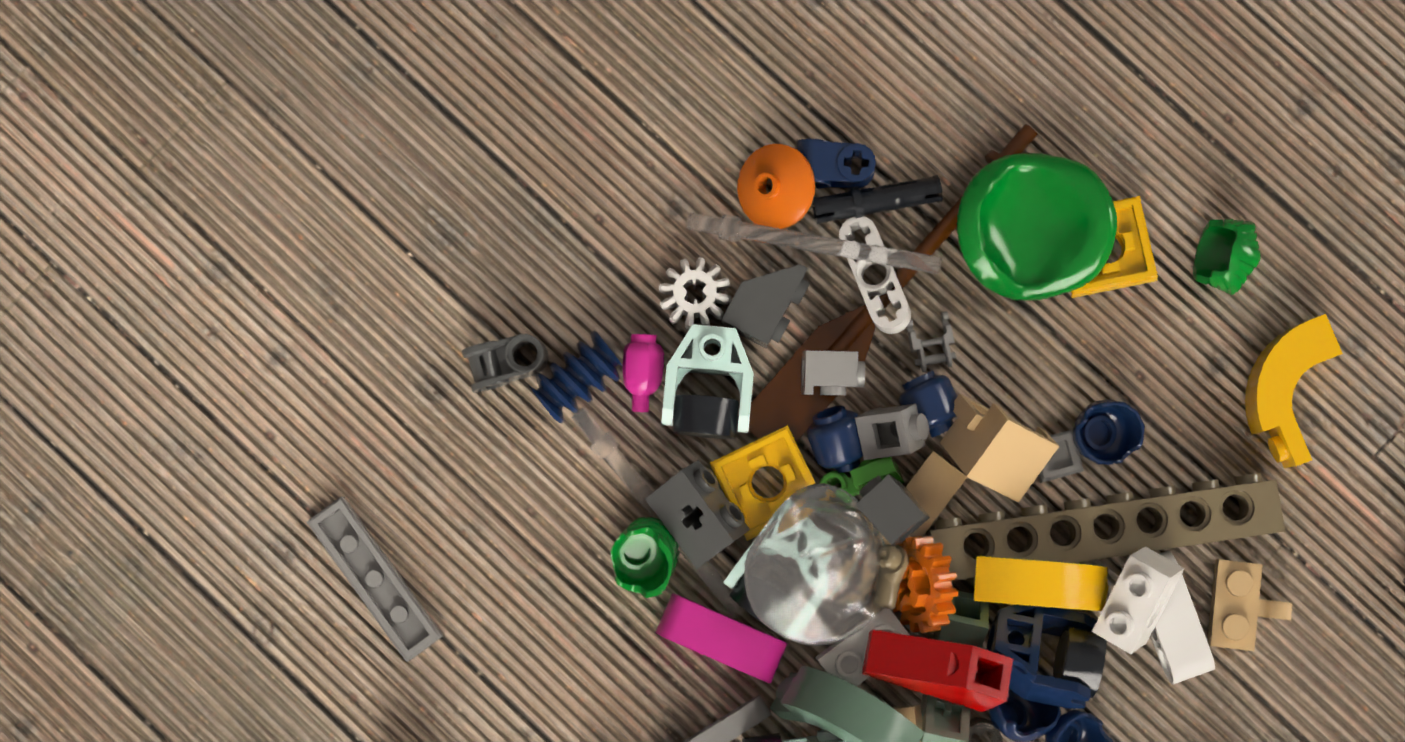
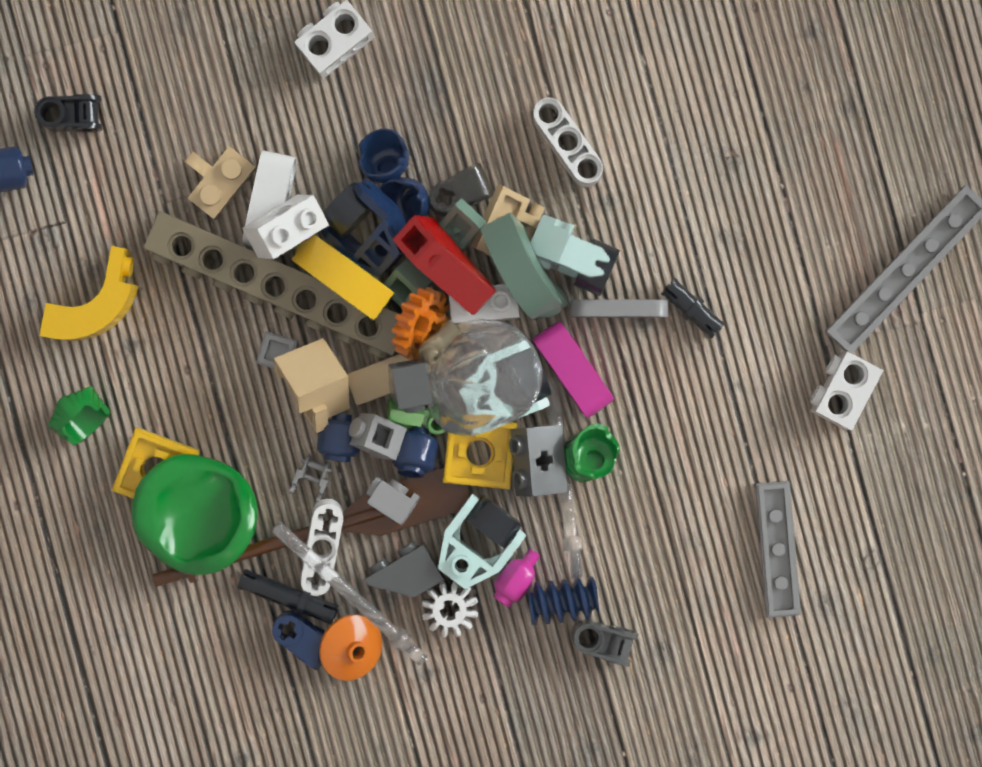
camera: 150 degrees left, 5 degrees up
(1108, 432) = (233, 346): dark blue hair -> none

